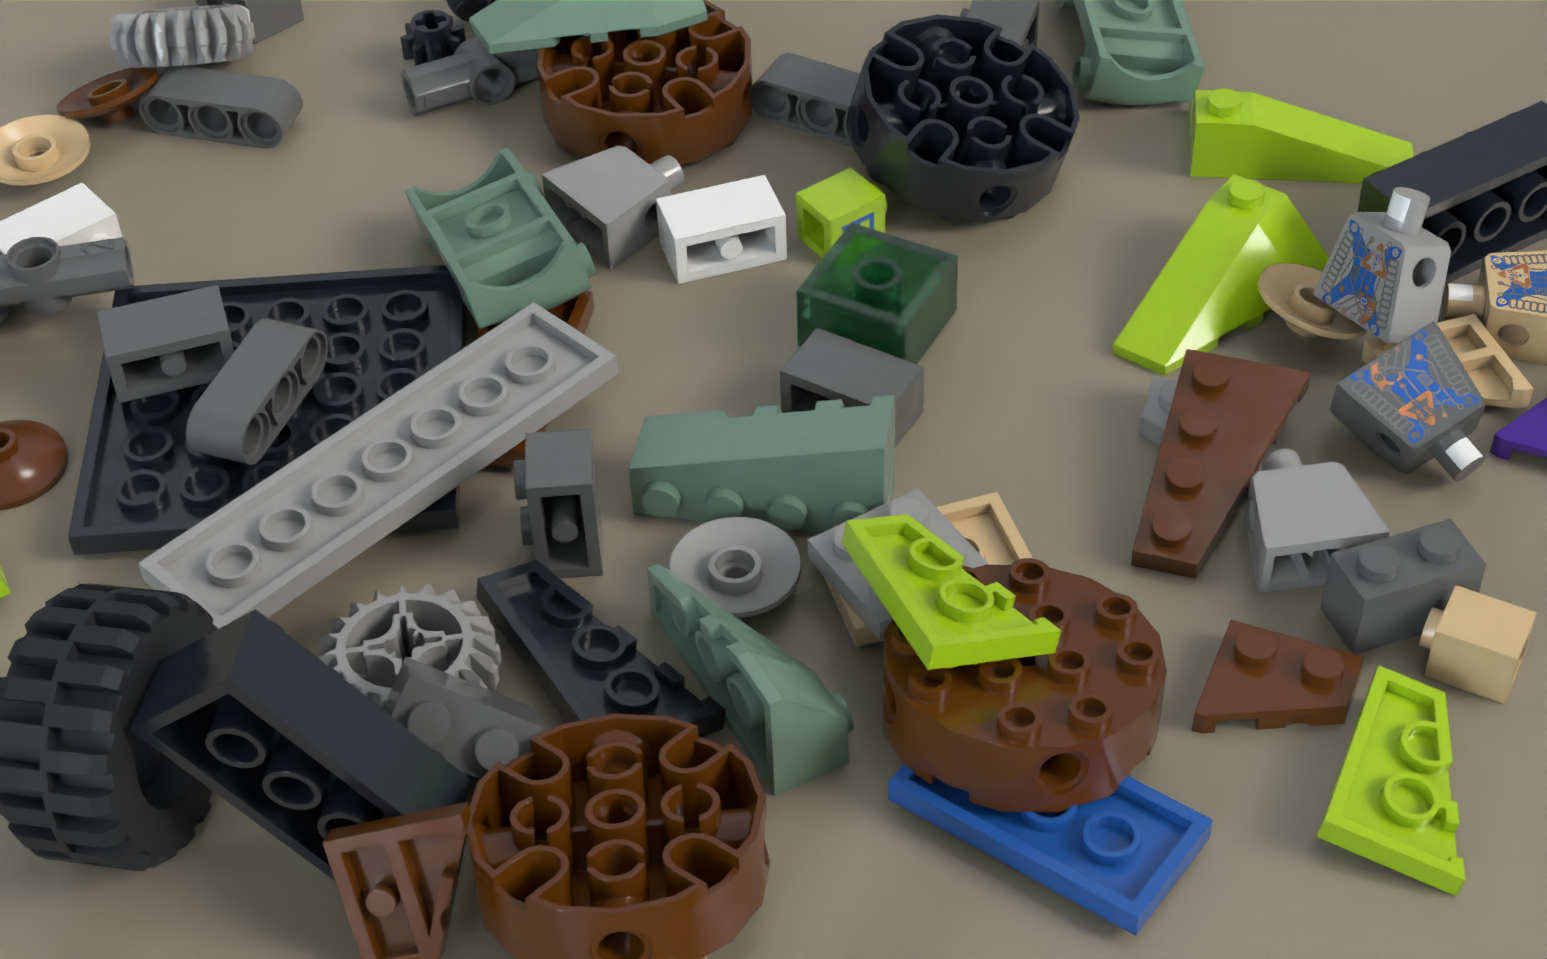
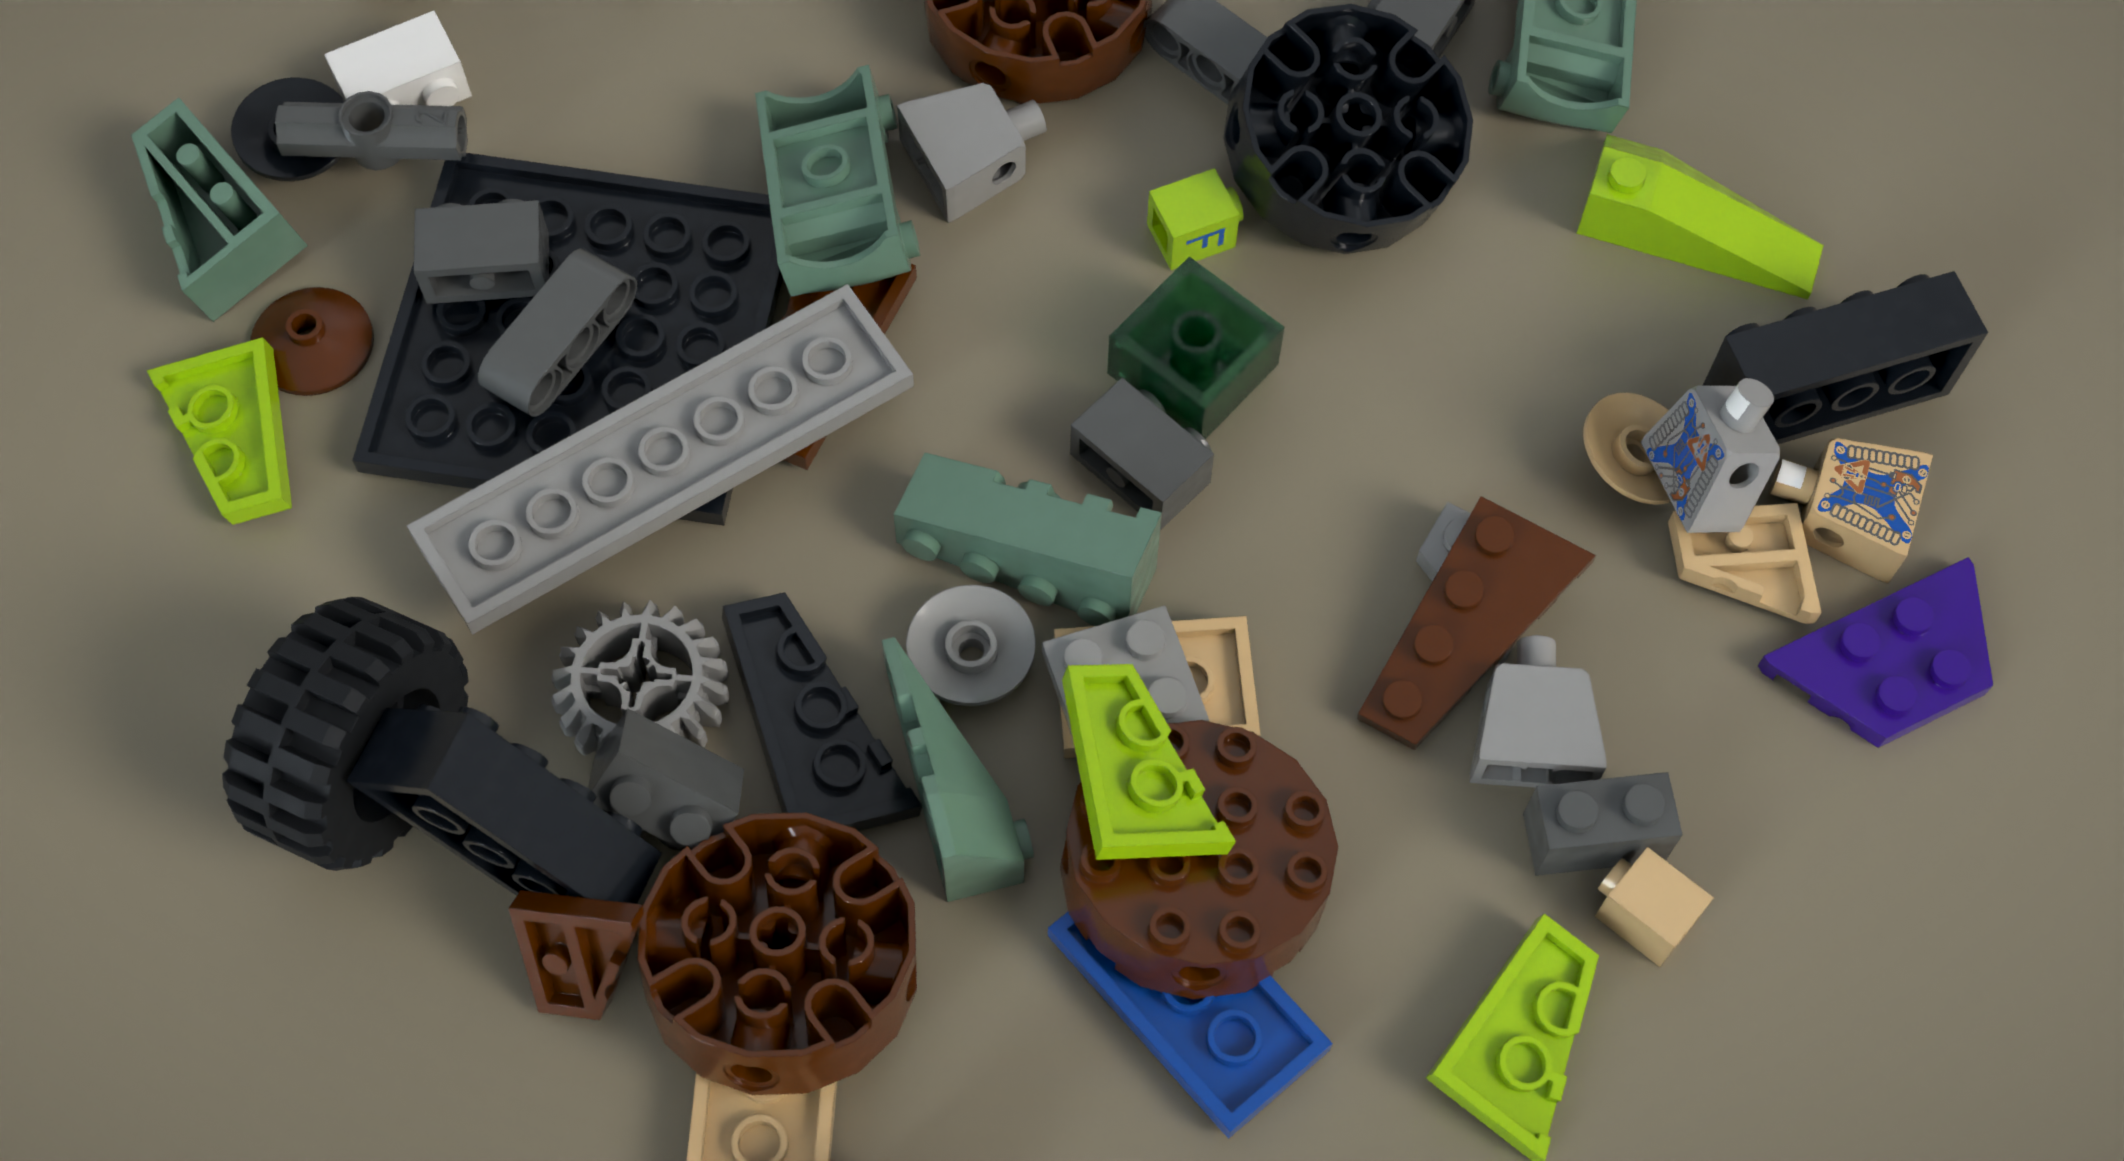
camera: 10 degrees right, 20 degrees up
(561, 501) = (819, 541): dark grey brick -> none
(721, 229) = (1067, 208): white brick -> none
(1215, 275) = (1545, 392): lime wedge -> none
(1276, 681) = (1448, 893): reddish brown wing -> none
(1415, 405) = (1692, 613): dark grey torso -> none

